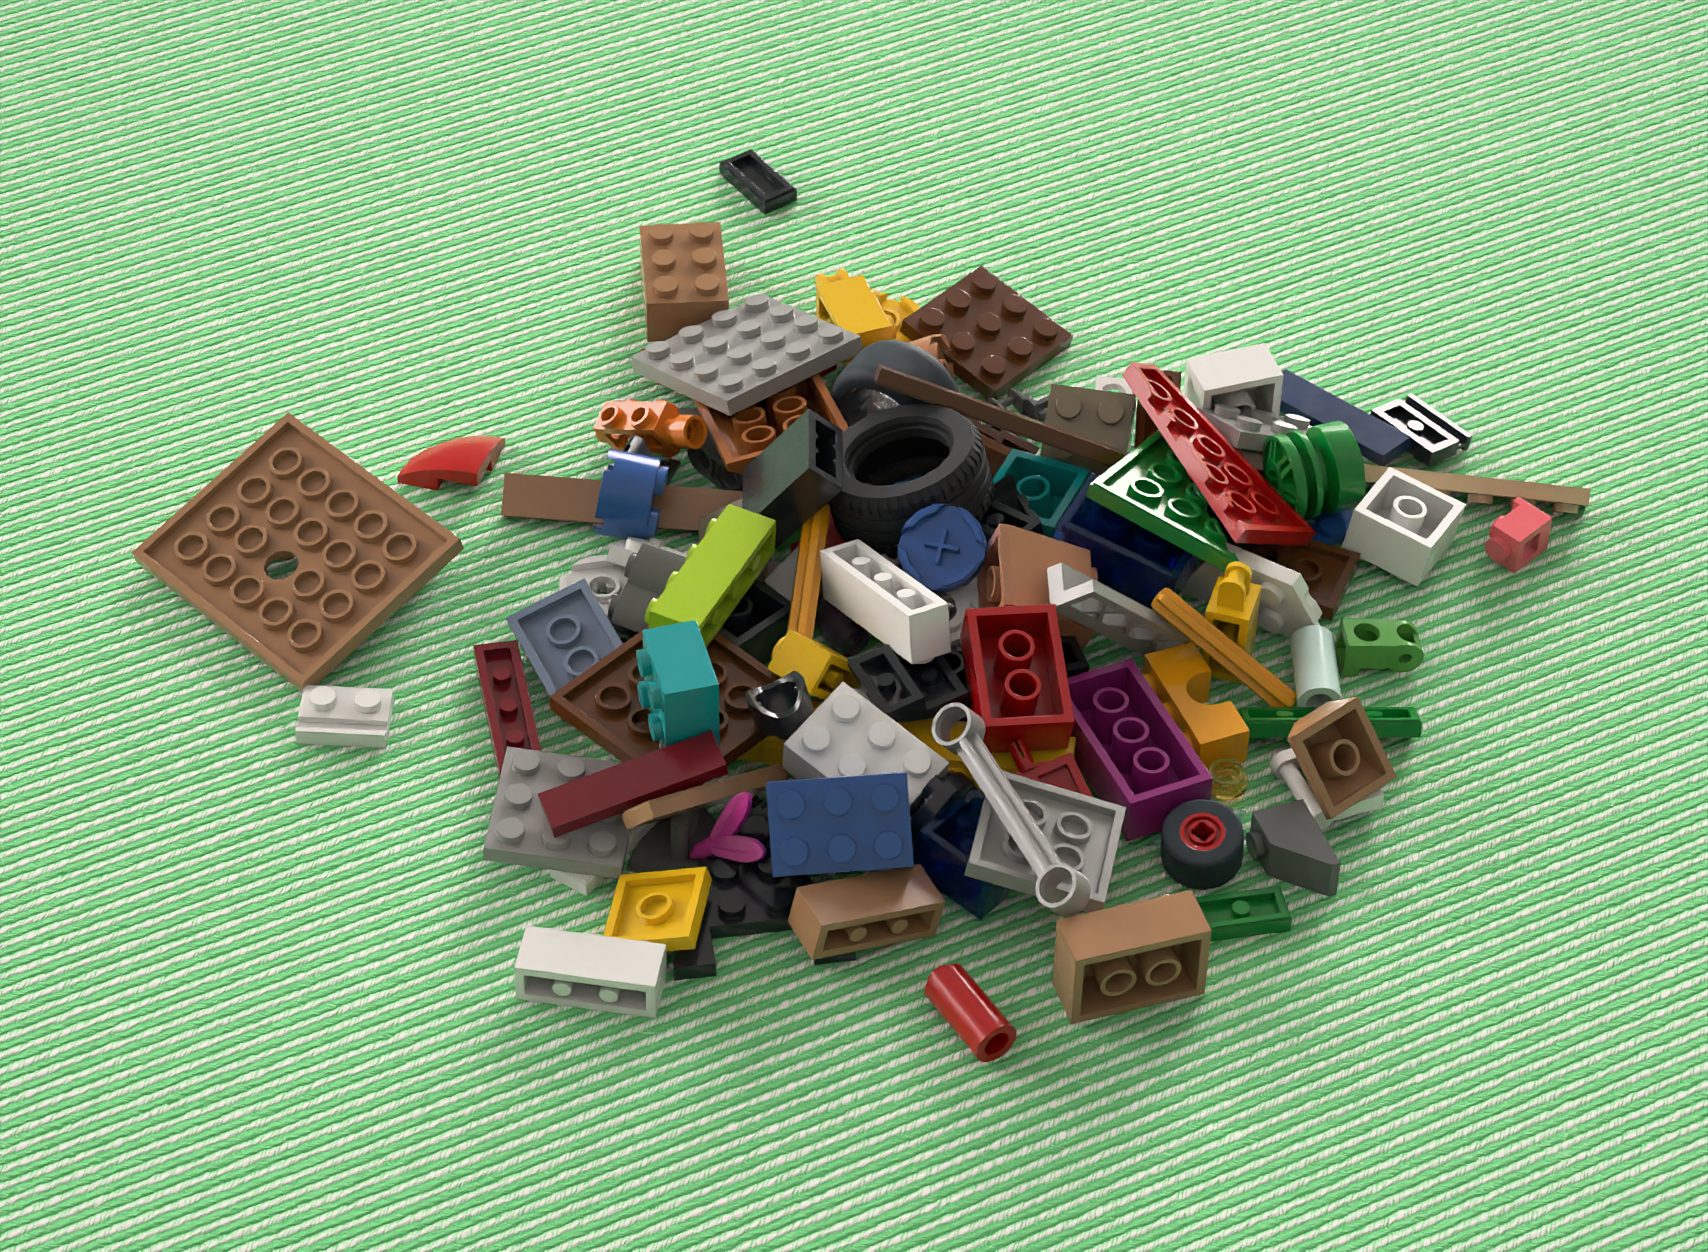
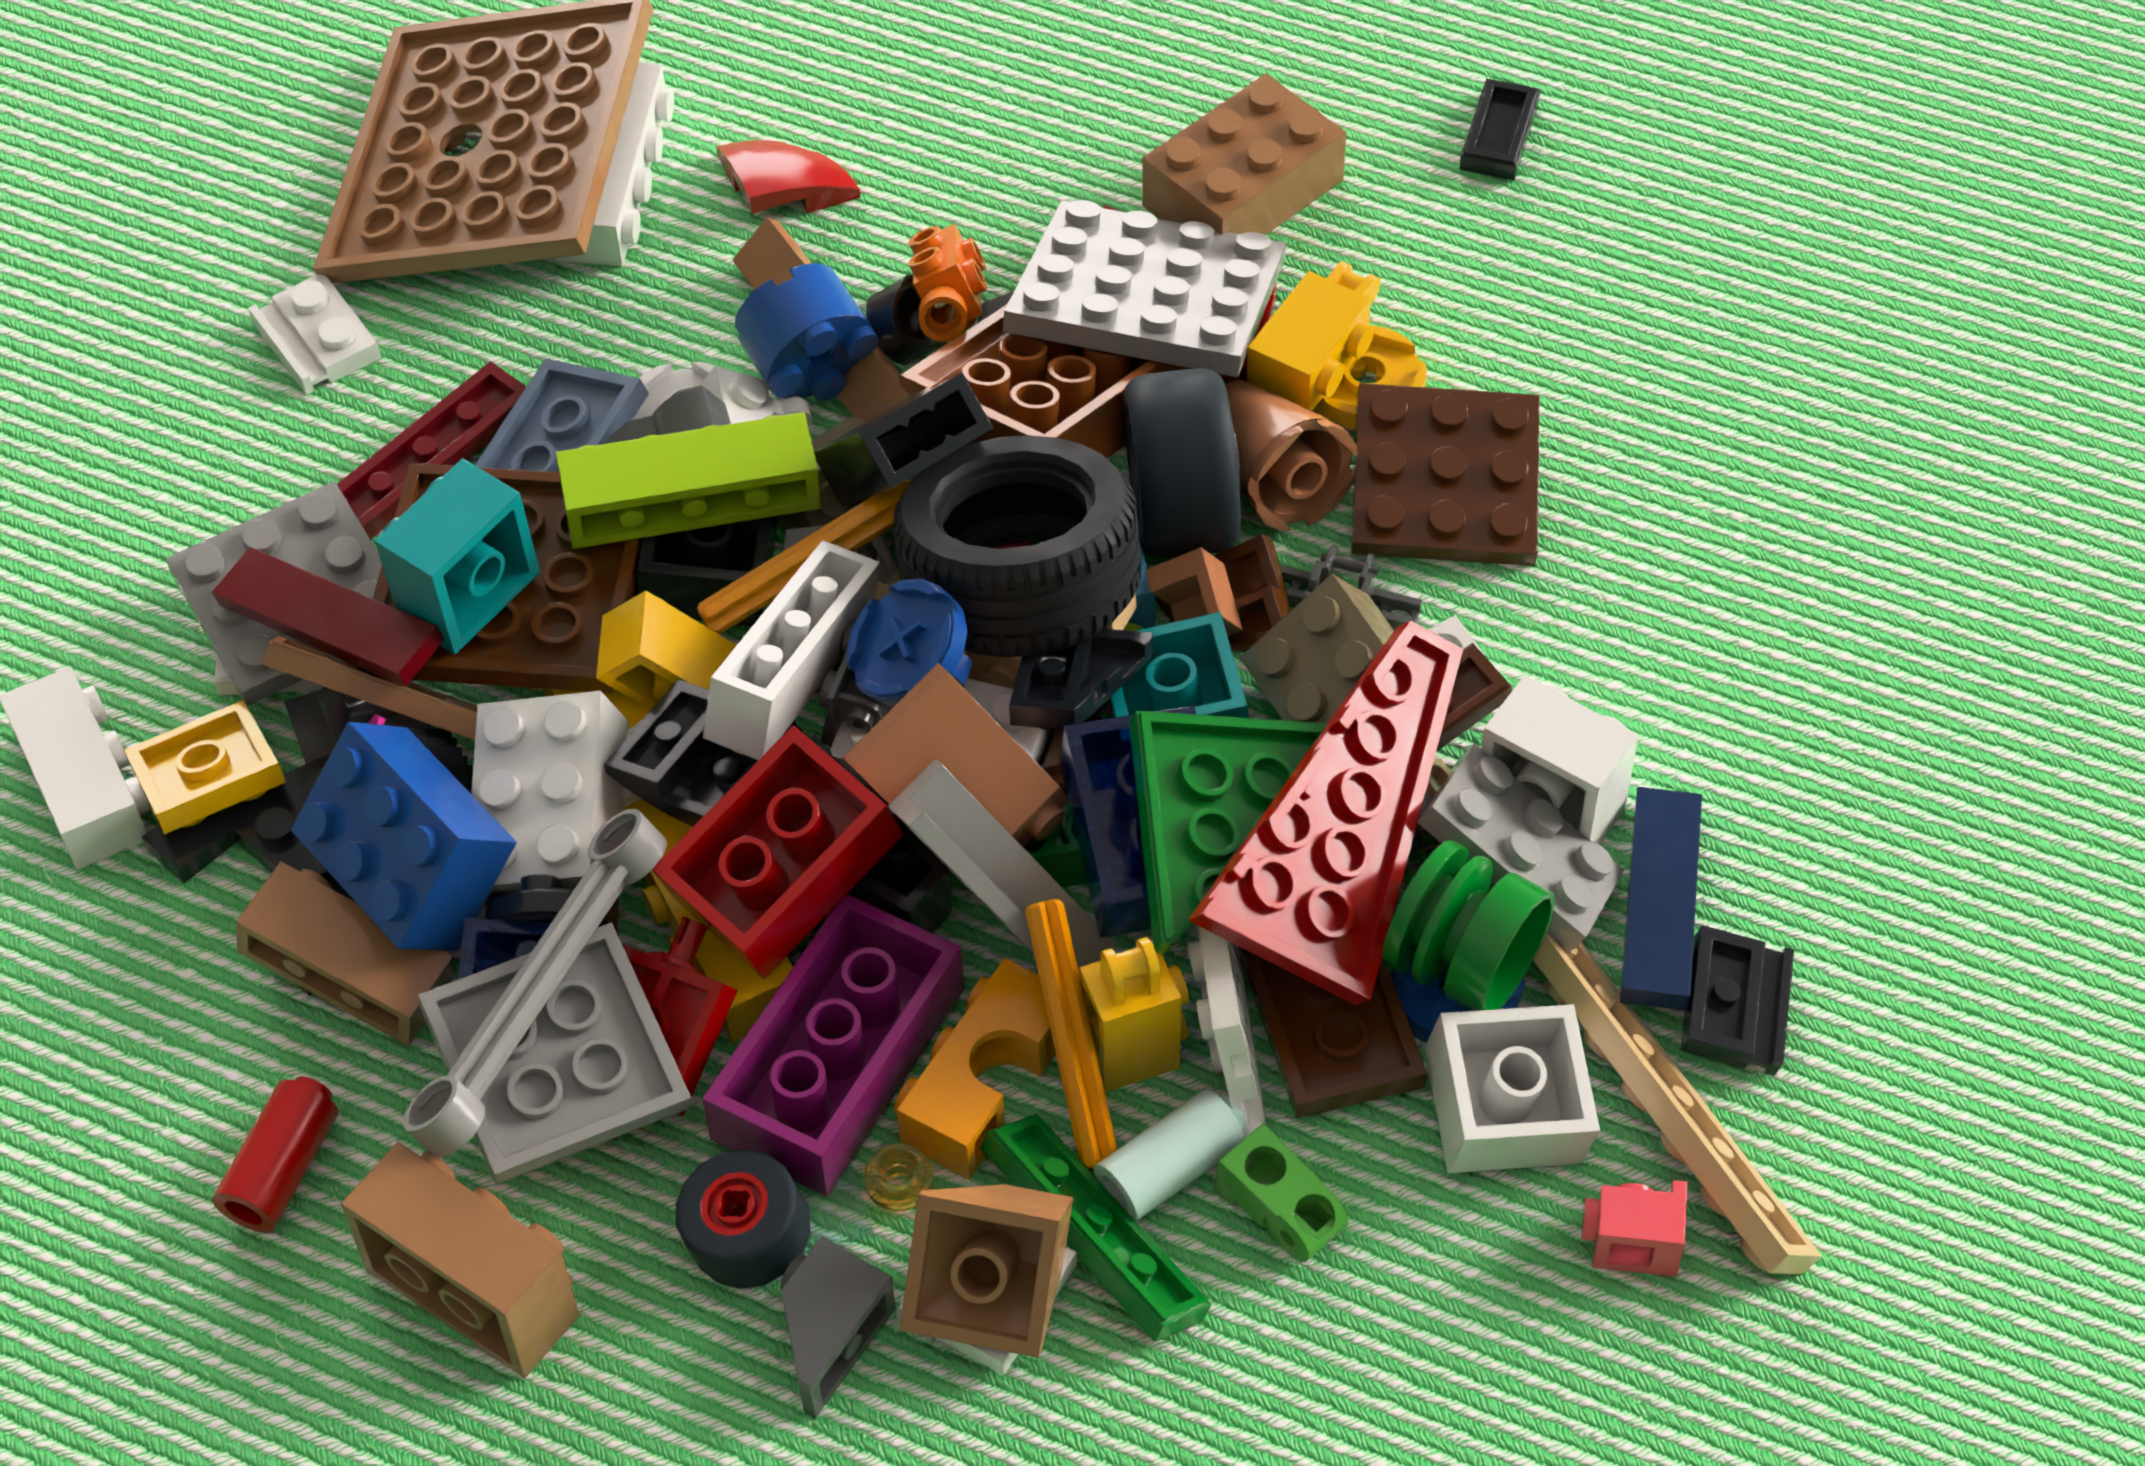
camera: 55 degrees right, 10 degrees up
(780, 706) = (540, 659): black piece -> none
(997, 416) = (1198, 556): reddish brown tile -> none
(1246, 913) = (660, 1314): green tile -> none

